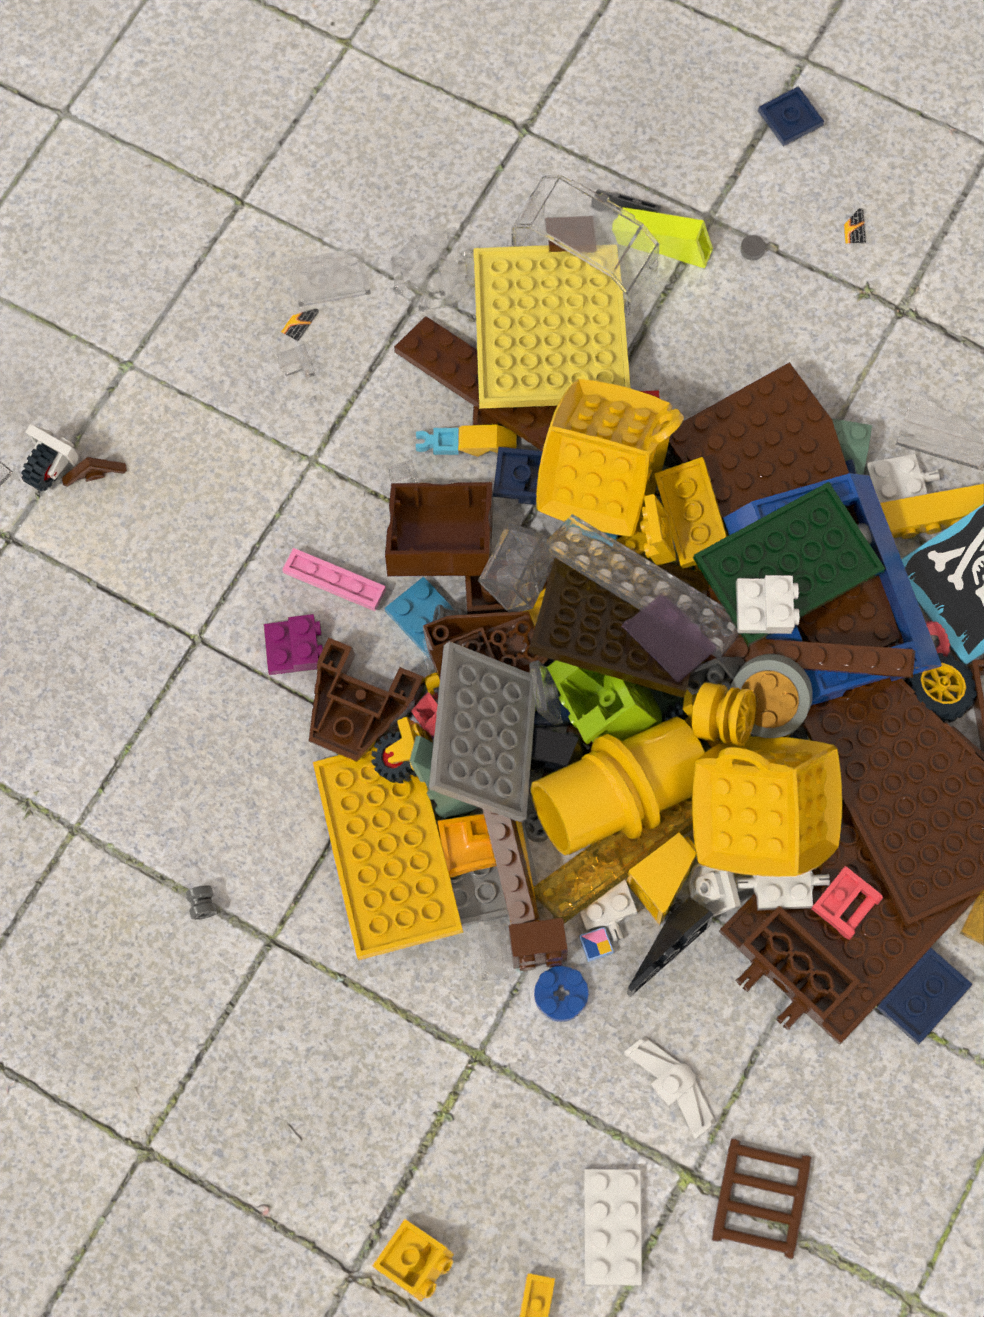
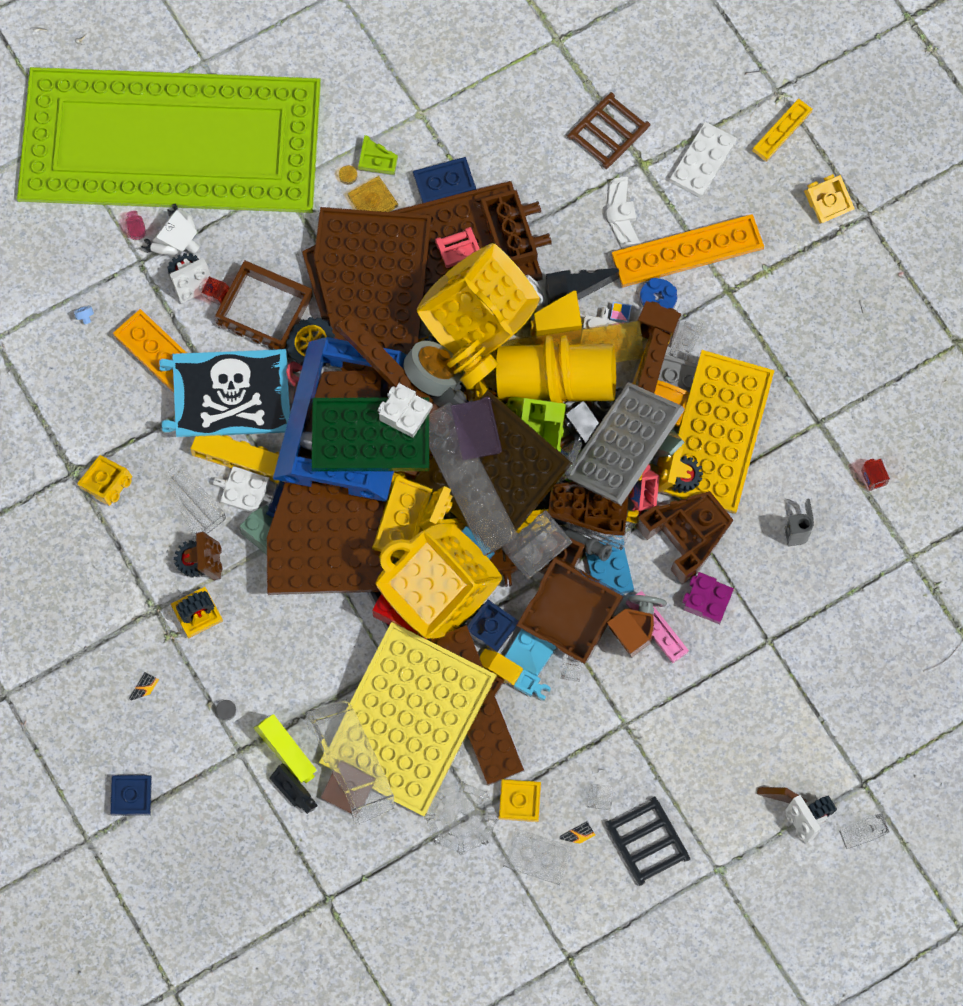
camera: 155 degrees left, 0 degrees up
(166, 903) = (875, 474): none -> clear red brick
(201, 902) = (852, 463): dark grey wheel -> none
(214, 380) = (622, 842): none -> black bar
(223, 776) = (800, 526): none -> dark grey piece
(357, 553) = (636, 628): none -> dark orange piece
(381, 318) = (519, 800): none -> yellow plate
(461, 466) = (530, 652): none -> medium azure plate
(558, 1078) = (687, 250): none -> light orange plate
(855, 322) = (196, 612): none -> plate
(889, 375) = (200, 557): none -> reddish brown plate

